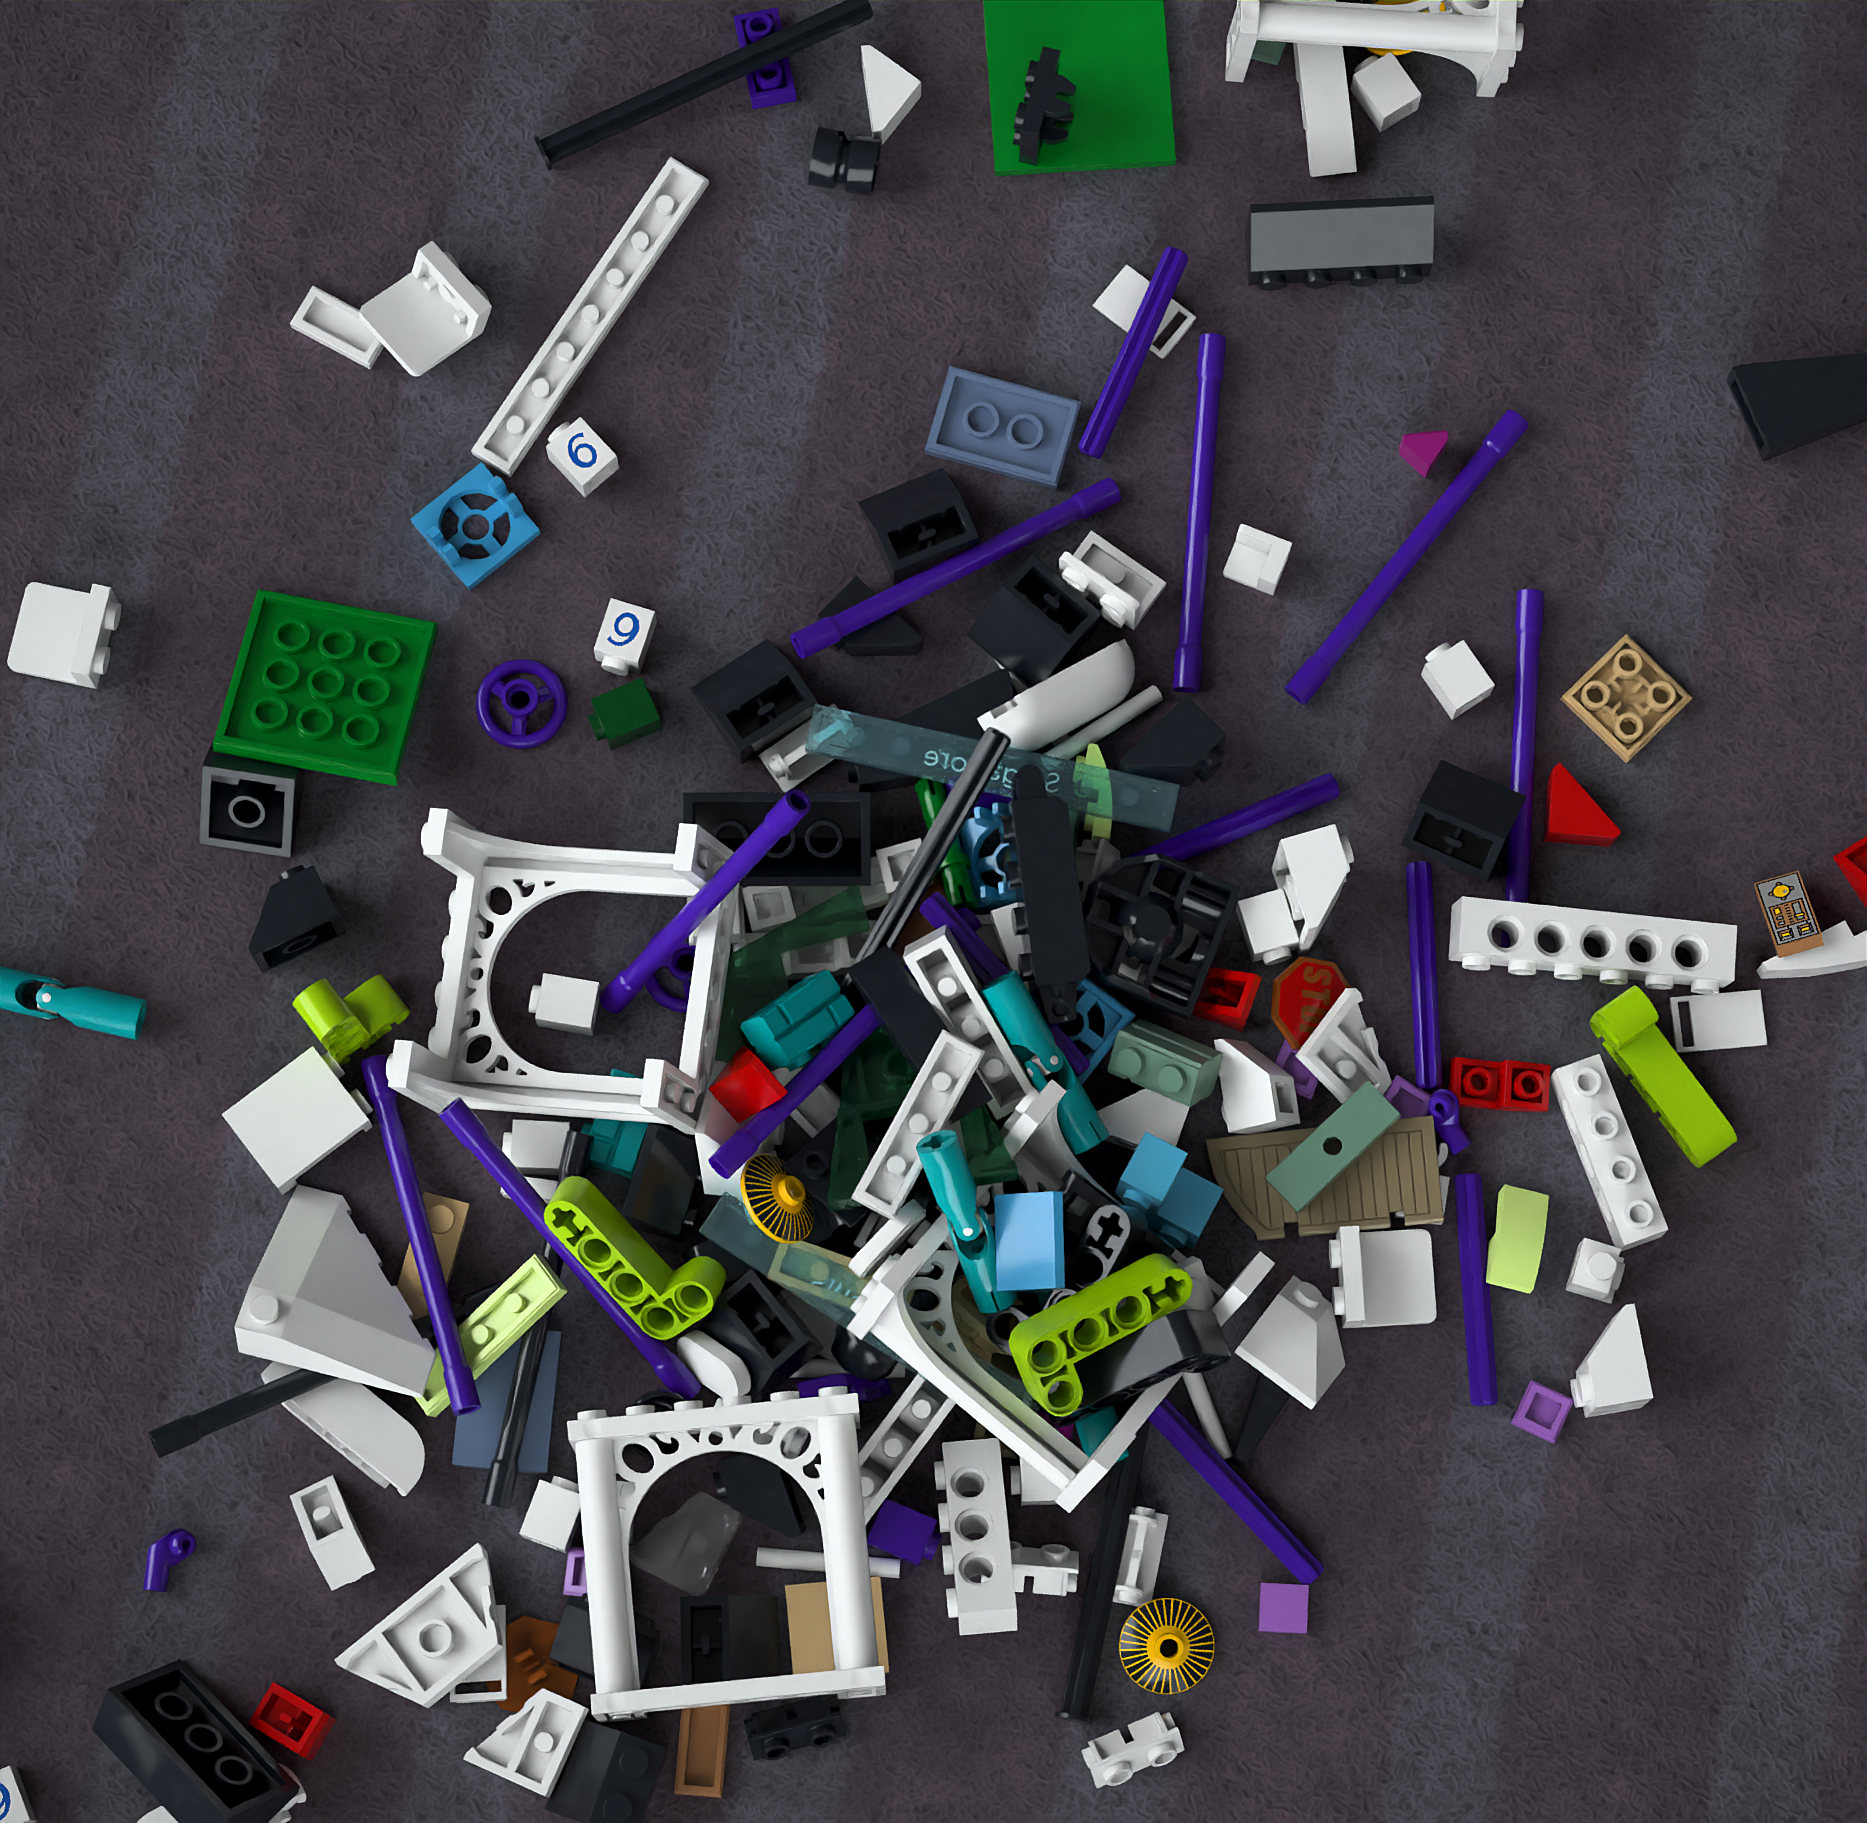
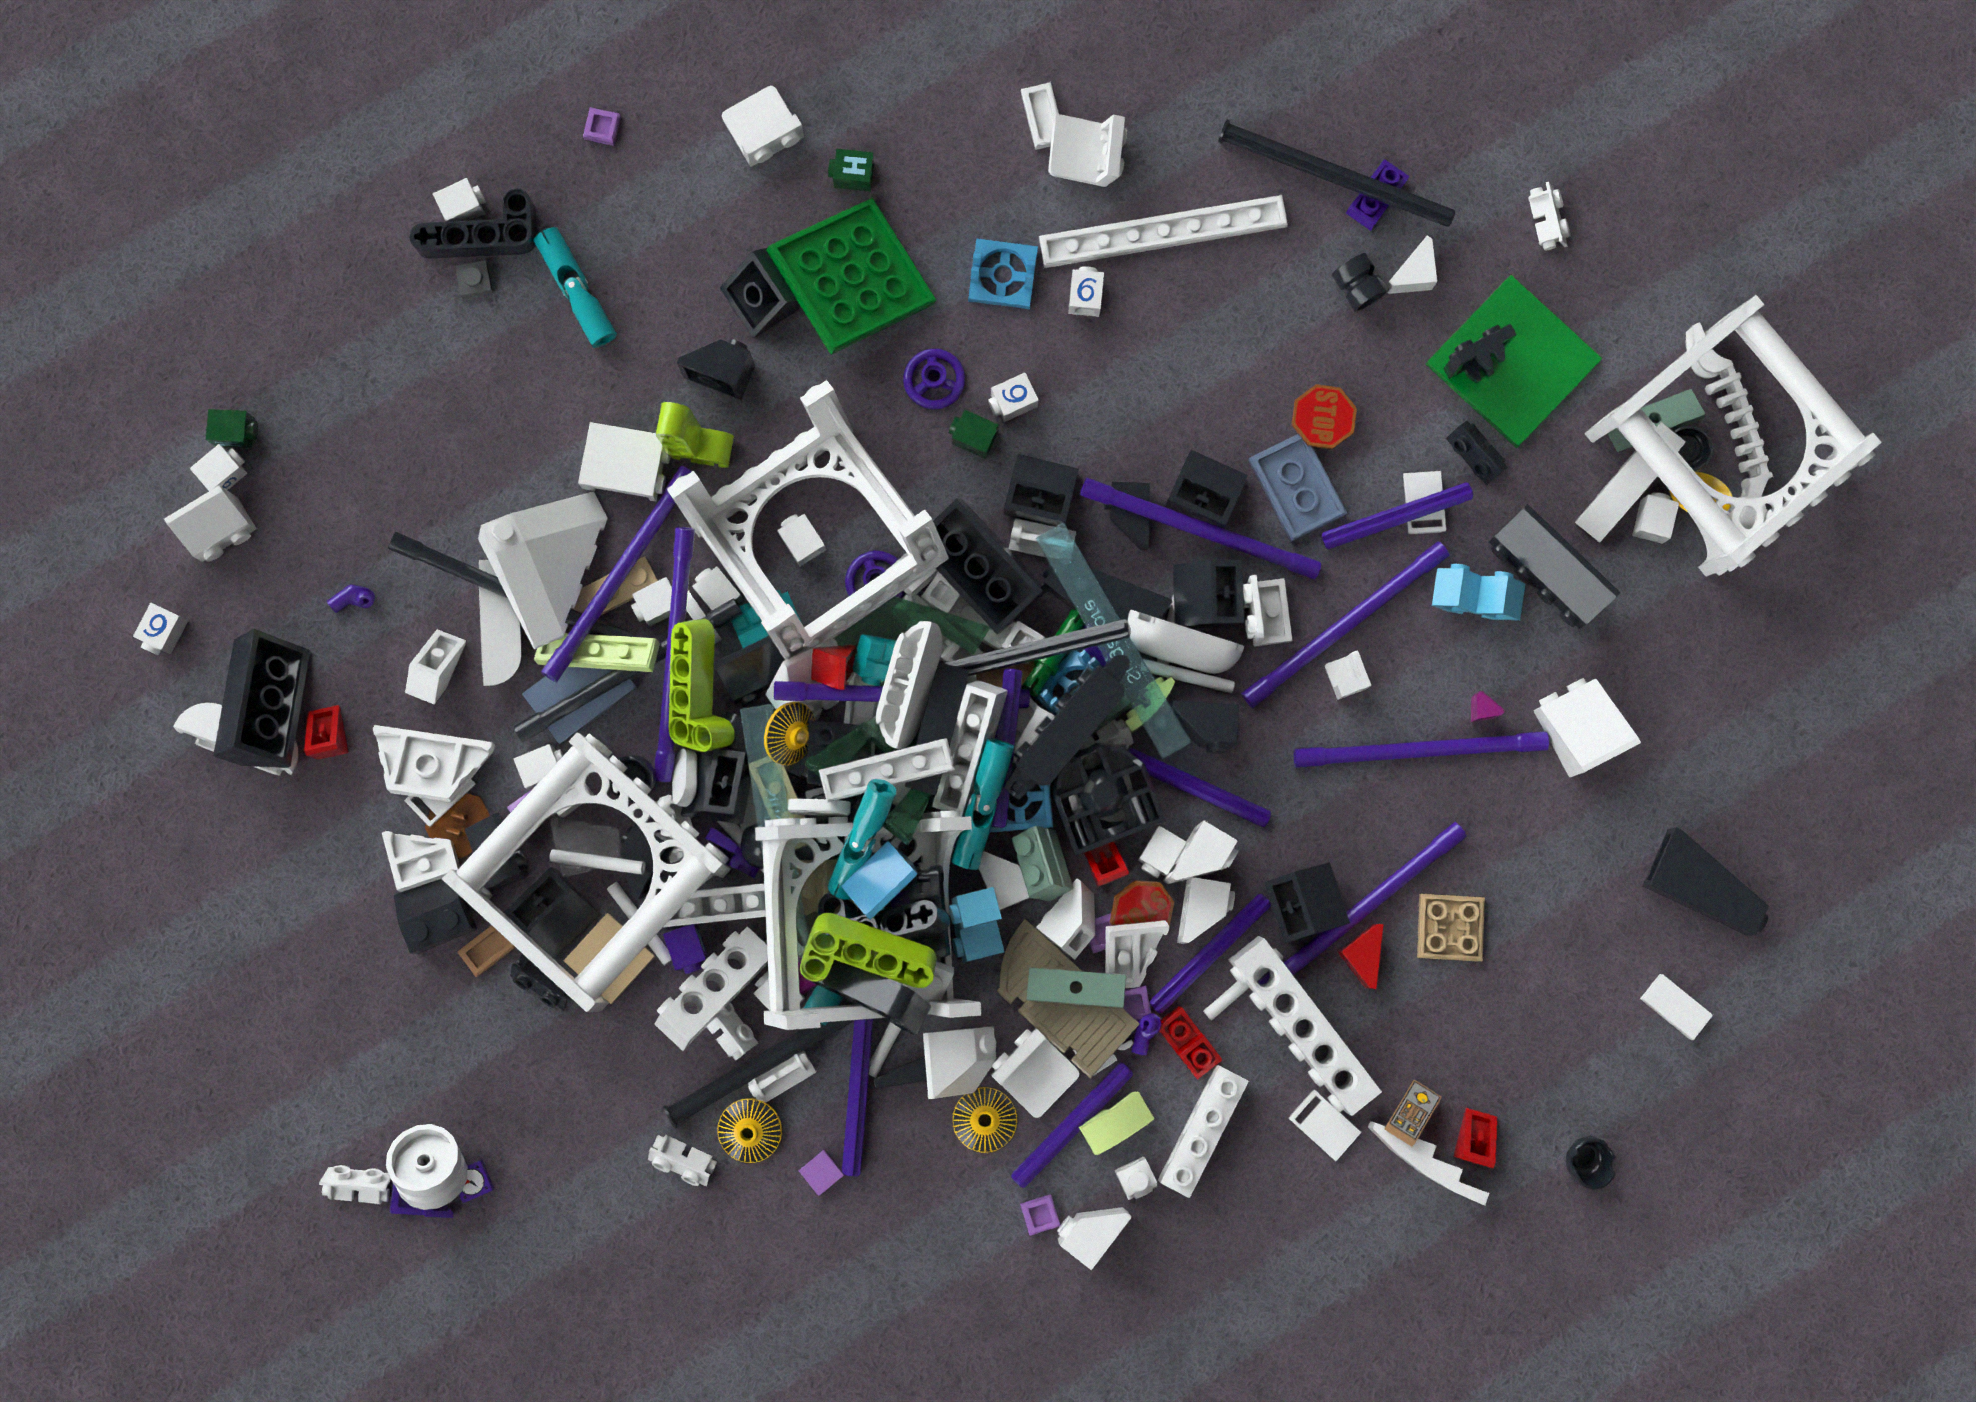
camera: 45 degrees right, 5 degrees up
(207, 581) = (852, 169): none -> dark green brick
(488, 1224) = (653, 602): none -> white brick
(720, 1542) = (596, 861): none -> white bar
(777, 823) = (964, 558): dark purple piece -> none
(843, 1019) = (908, 683): none -> white brick
(954, 330) = (1324, 416): none -> piece
(1160, 211) = (1467, 442): none -> black hinge
(1309, 335) = (1492, 596): none -> medium azure brick
(1367, 934) = (1203, 906): none -> white slope
(1368, 1397) = (988, 1102): none -> dish
(1456, 678) = (1379, 831): white brick -> none
(1489, 999) = (1232, 994): none -> white piece
(1540, 364) = (1584, 726): none -> white slope
(1662, 1076) = (1268, 1124): lime beam -> none

